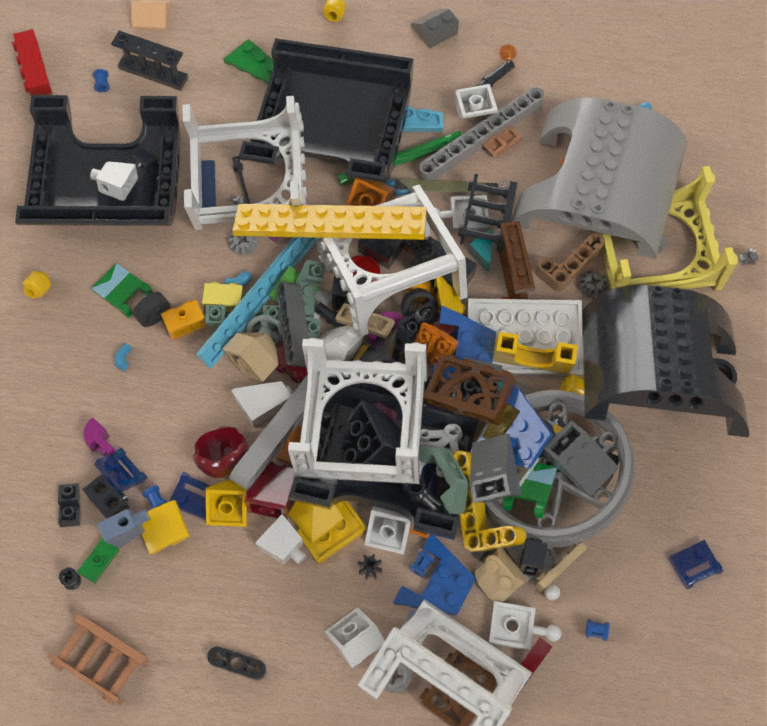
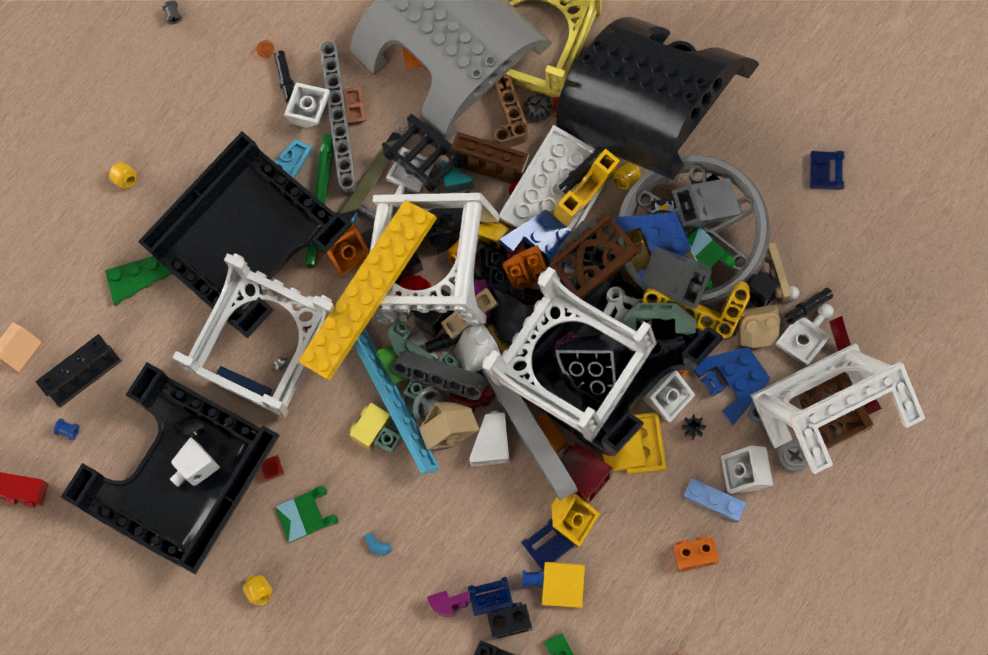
camera: 50 degrees left, 5 degrees up
(123, 527) = (548, 624): sand blue torso -> none
(147, 242) = (272, 468): none -> clear red plate
(150, 308) = (348, 494): black tyre -> none
(183, 319) = (372, 471): light orange brick -> none
(220, 451) = (524, 497): dark red piece -> none
(238, 166) = (240, 347): black sword -> none
(242, 248) = (318, 390): light grey gear -> none
(243, 279) = (361, 402): dark azure arm -> none
(249, 629) = (695, 553): none -> orange brick
(253, 663) = (732, 573): black beam -> none
(281, 542) = (632, 488): white torso -> none
(312, 622) = (714, 499): none -> light blue plate
(436, 27) = (198, 95): dark grey slope -> none
(539, 608) = (803, 309): none -> black pin
(545, 343) = (576, 175): none -> black pin
(597, 630) = (841, 275): blue bush -> none

